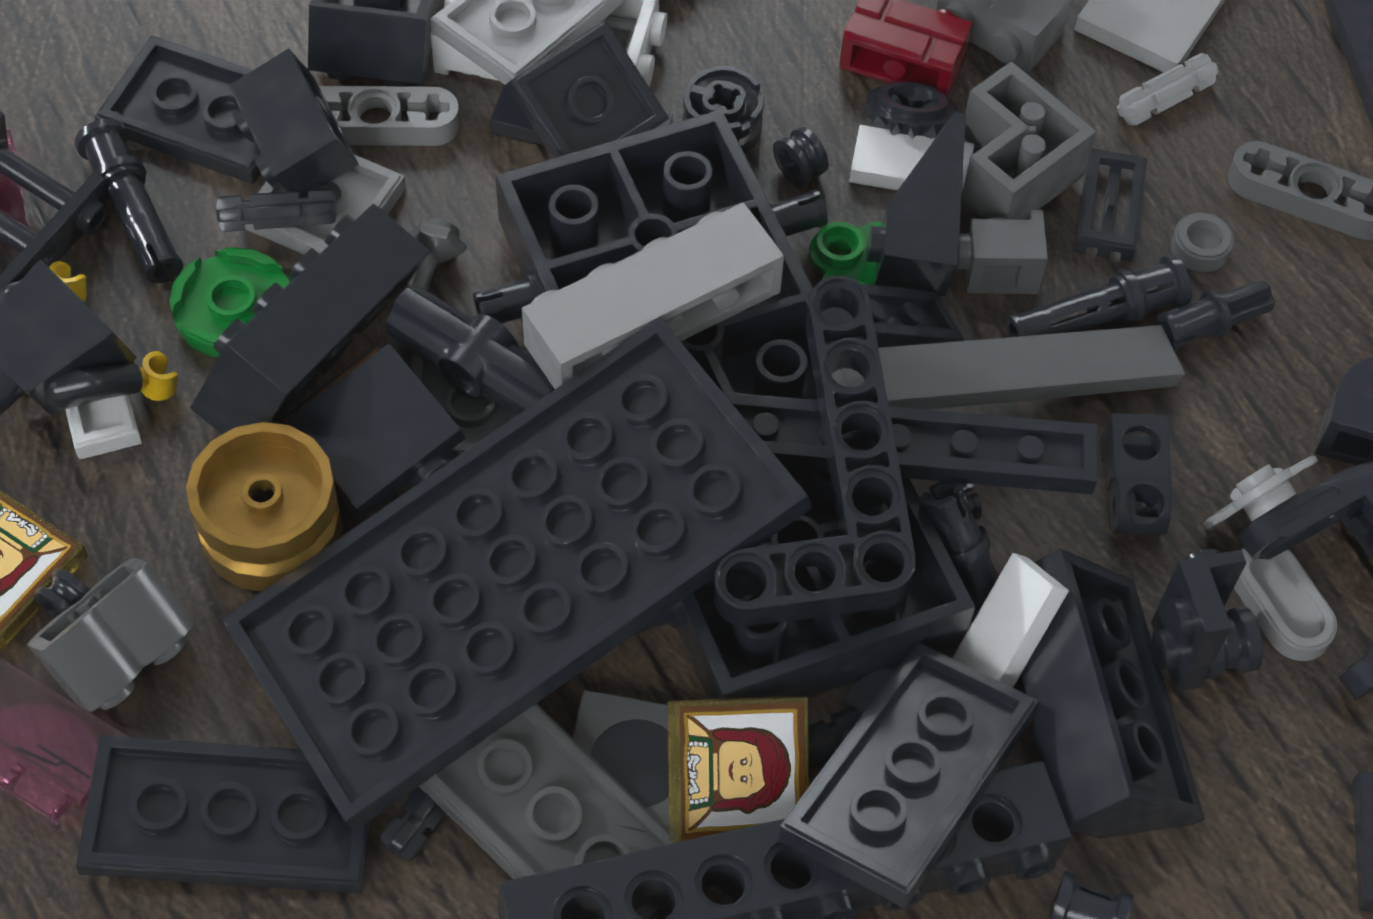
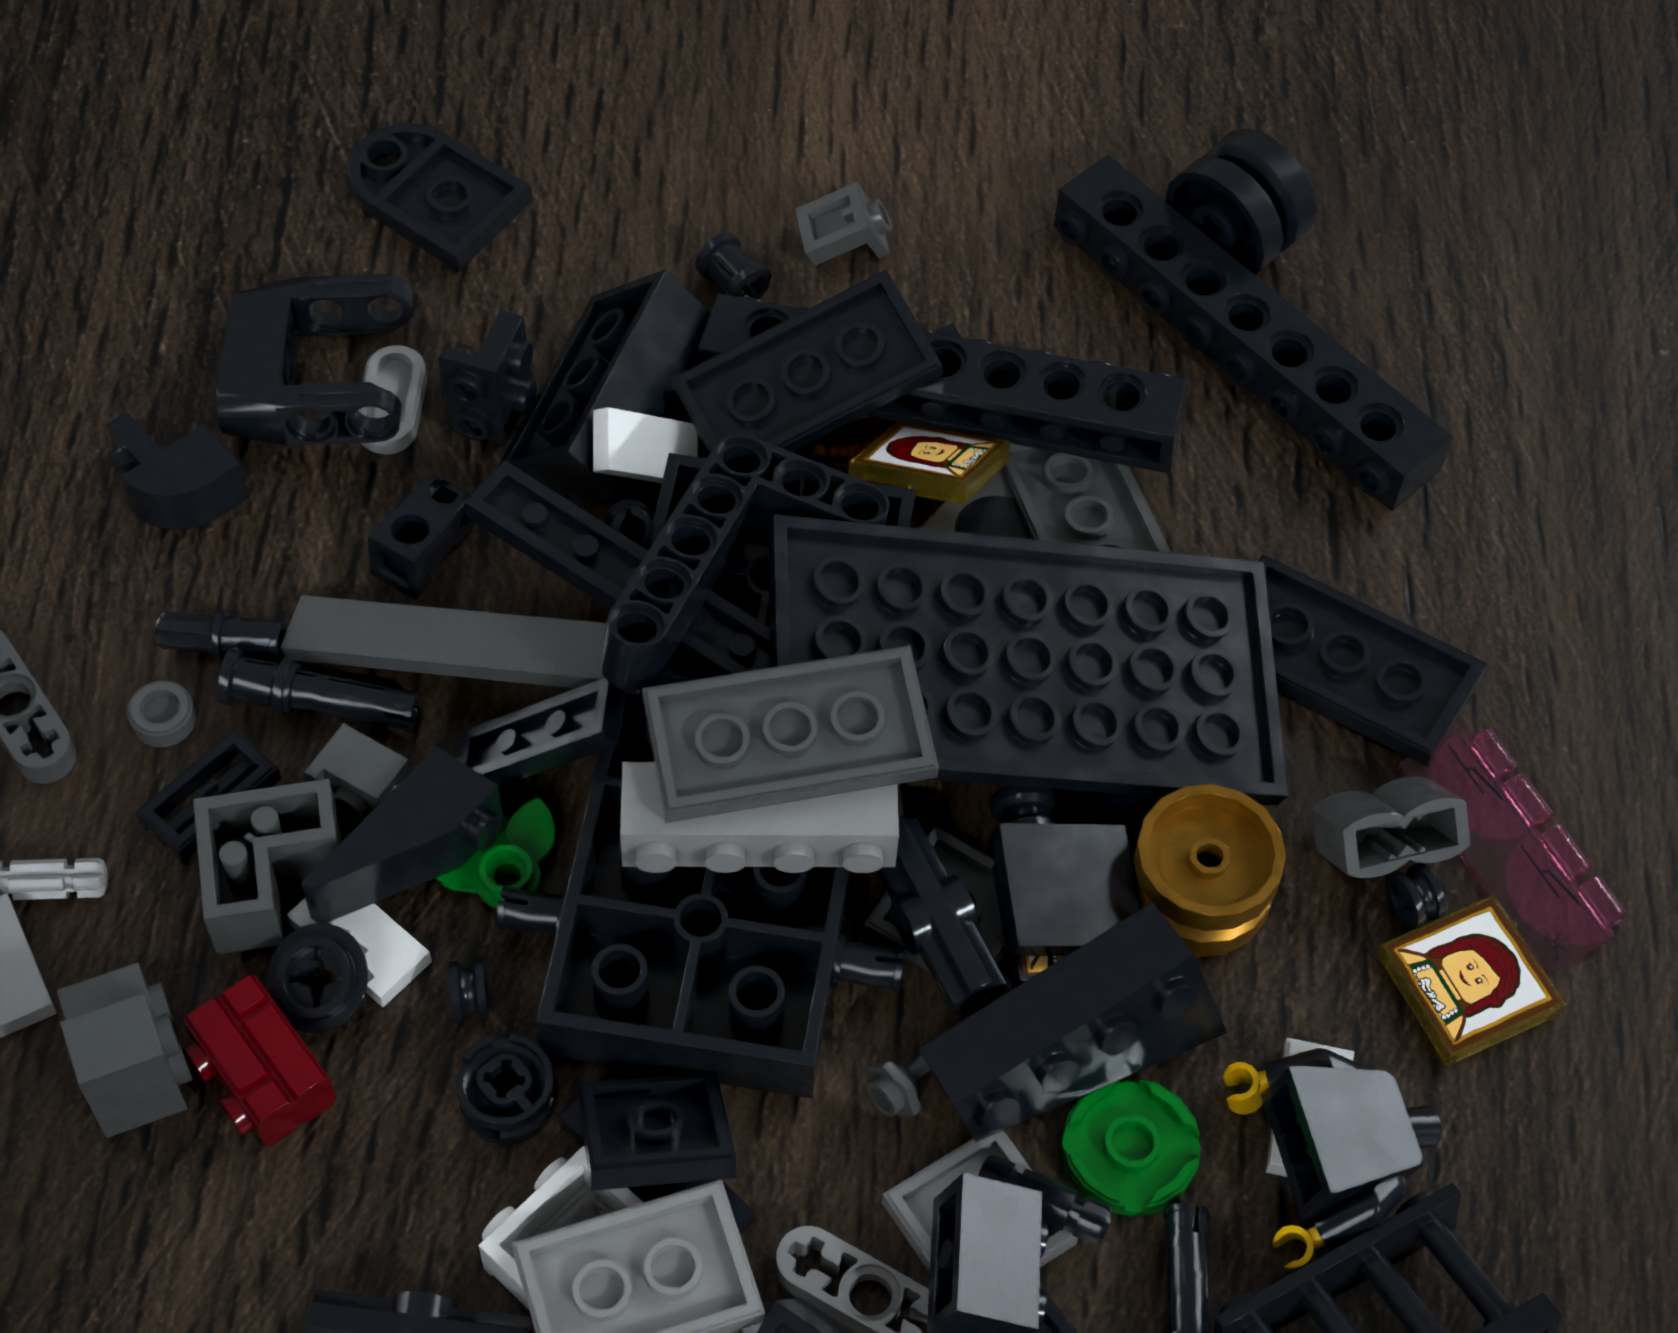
camera: 150 degrees left, 0 degrees up
(659, 327) = (789, 733): none -> dark grey tile
(1260, 492) = (348, 454): light grey plate -> none

